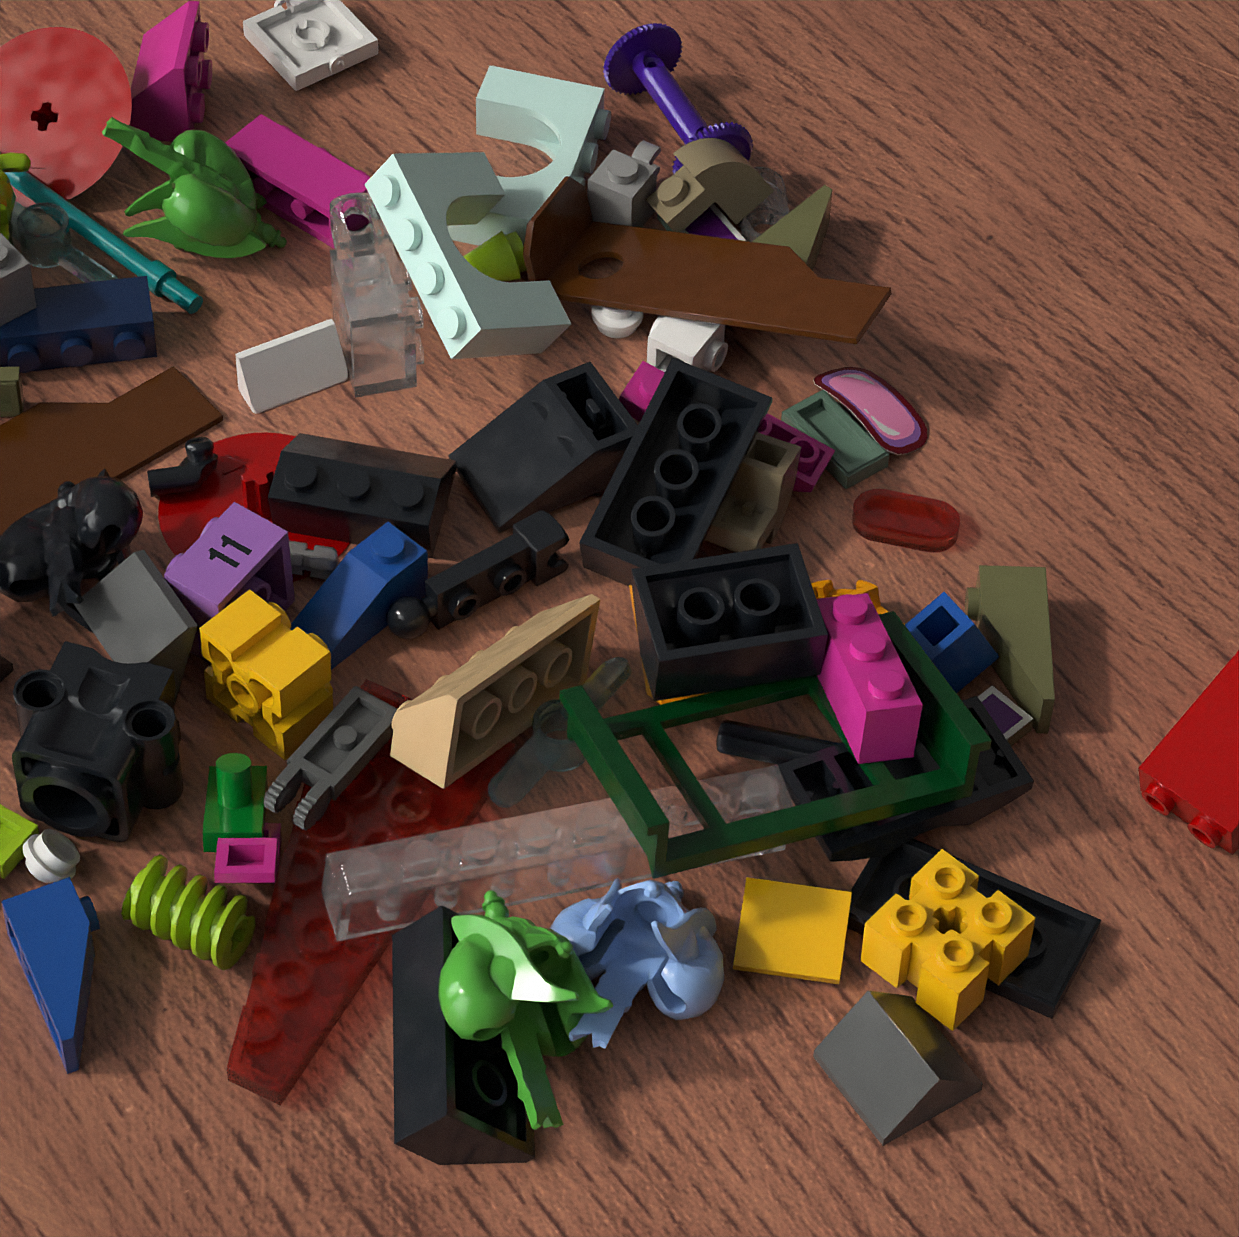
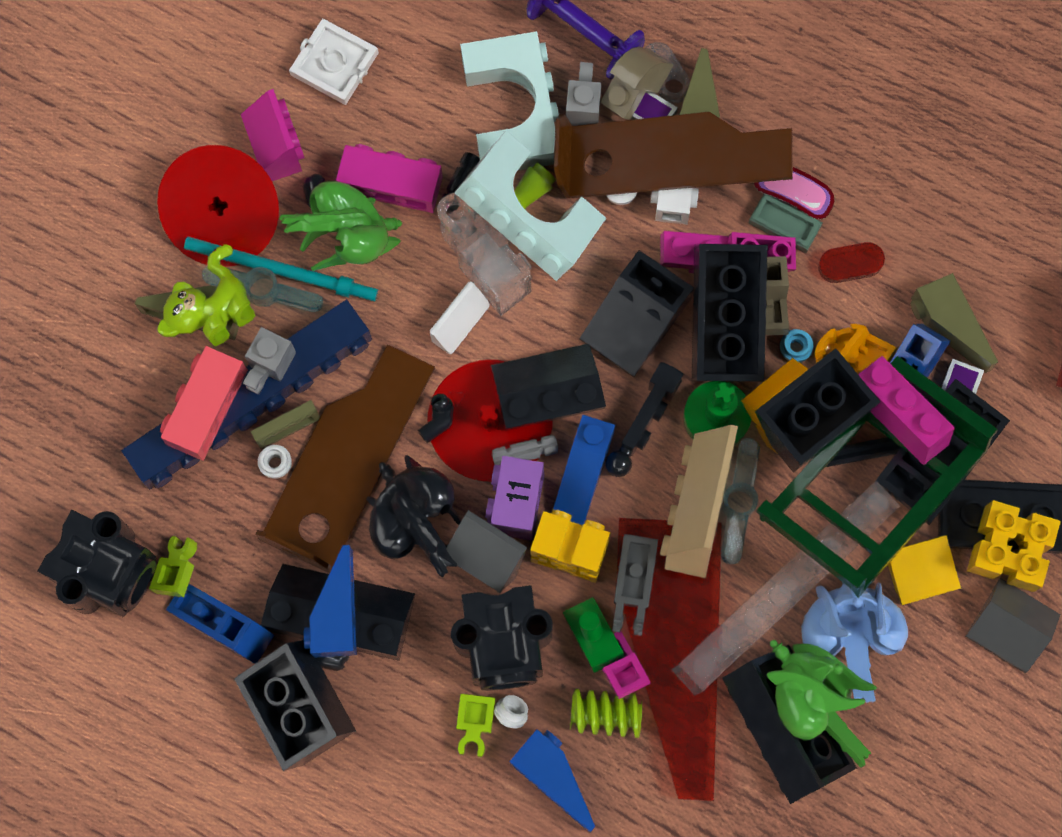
camera: 20 degrees left, 25 degrees up
(596, 571) = (716, 406): none -> green piece

